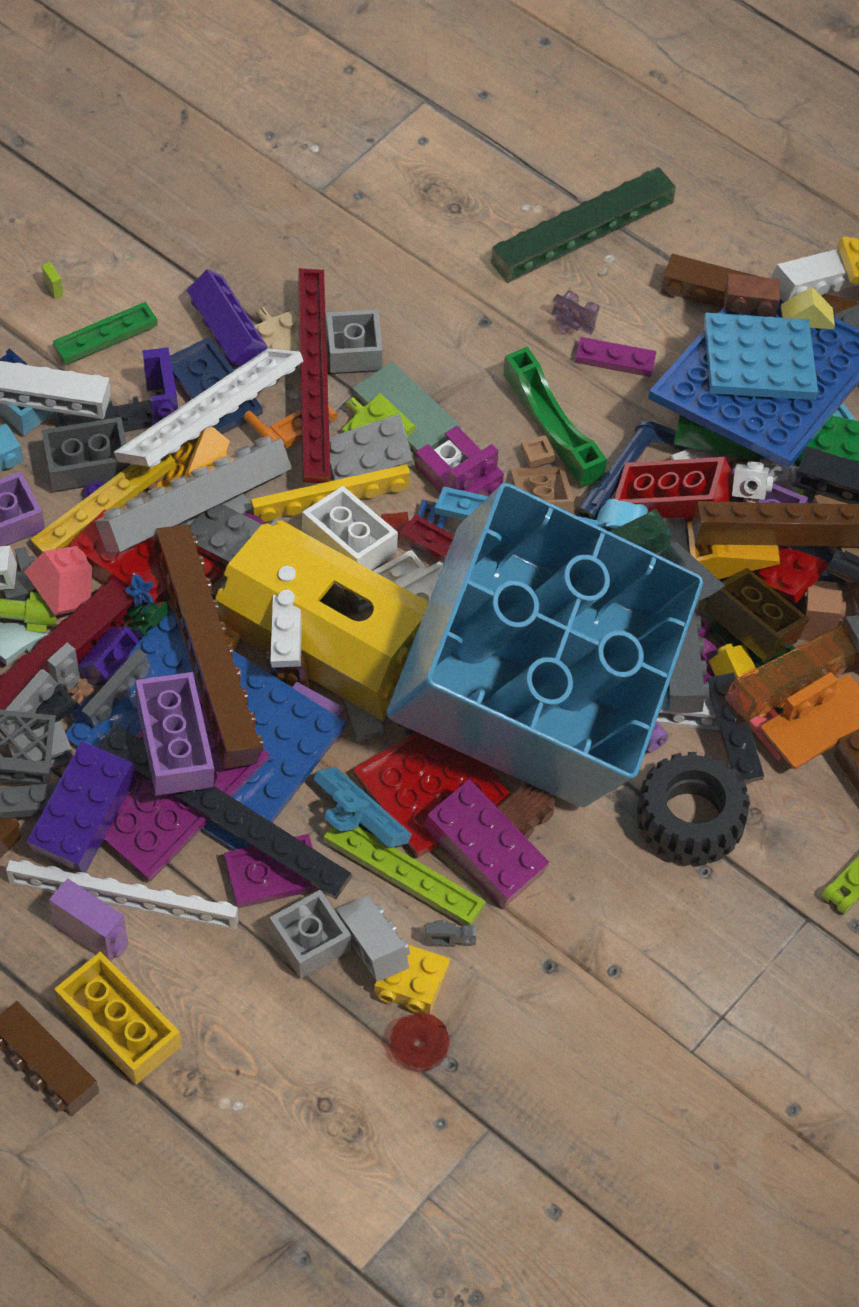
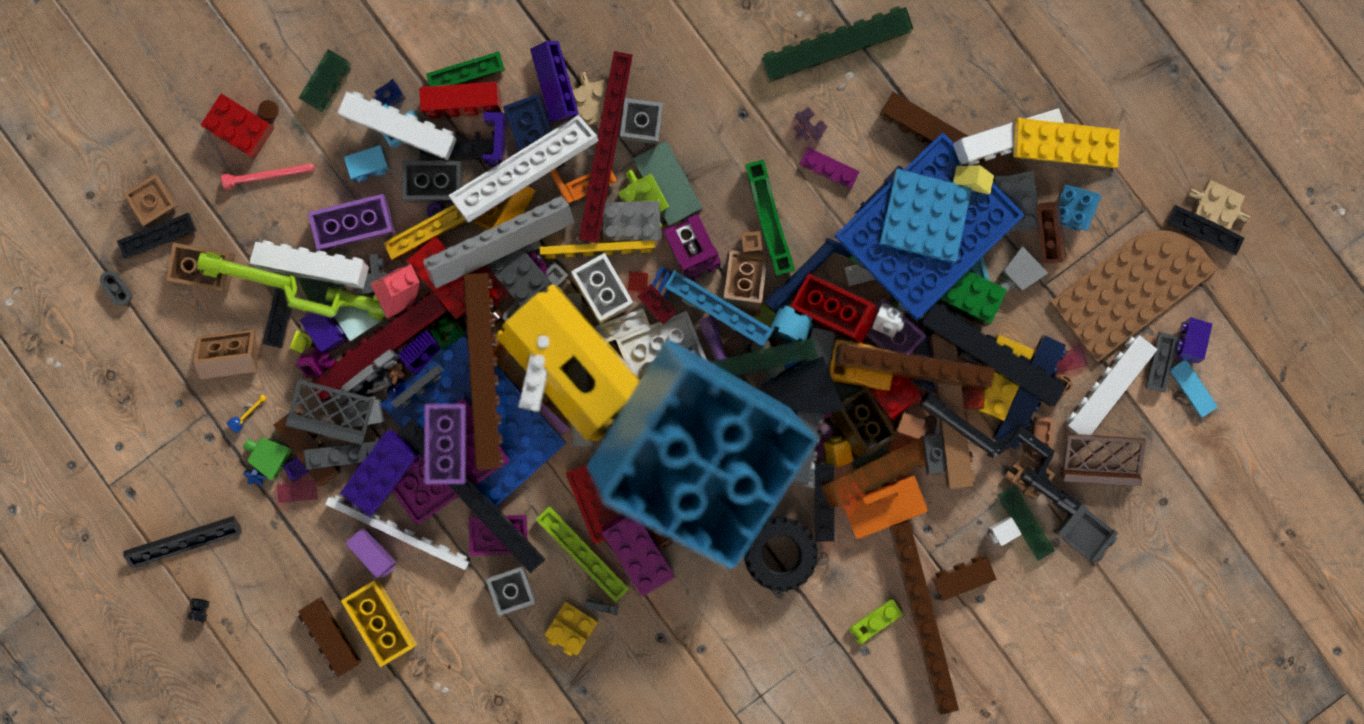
camera: 15 degrees right, 30 degrees up
(52, 280) = (435, 16): lime tile -> none
(107, 350) = (460, 99): none -> red brick
(139, 590) = (446, 311): blue plant -> none
(357, 807) = (561, 505): dark azure plate -> none
(374, 938) = (550, 604): light grey brick -> none
(422, 1028) = (563, 685): clear red plate -> none
(751, 295) = (936, 157): copper brick -> none

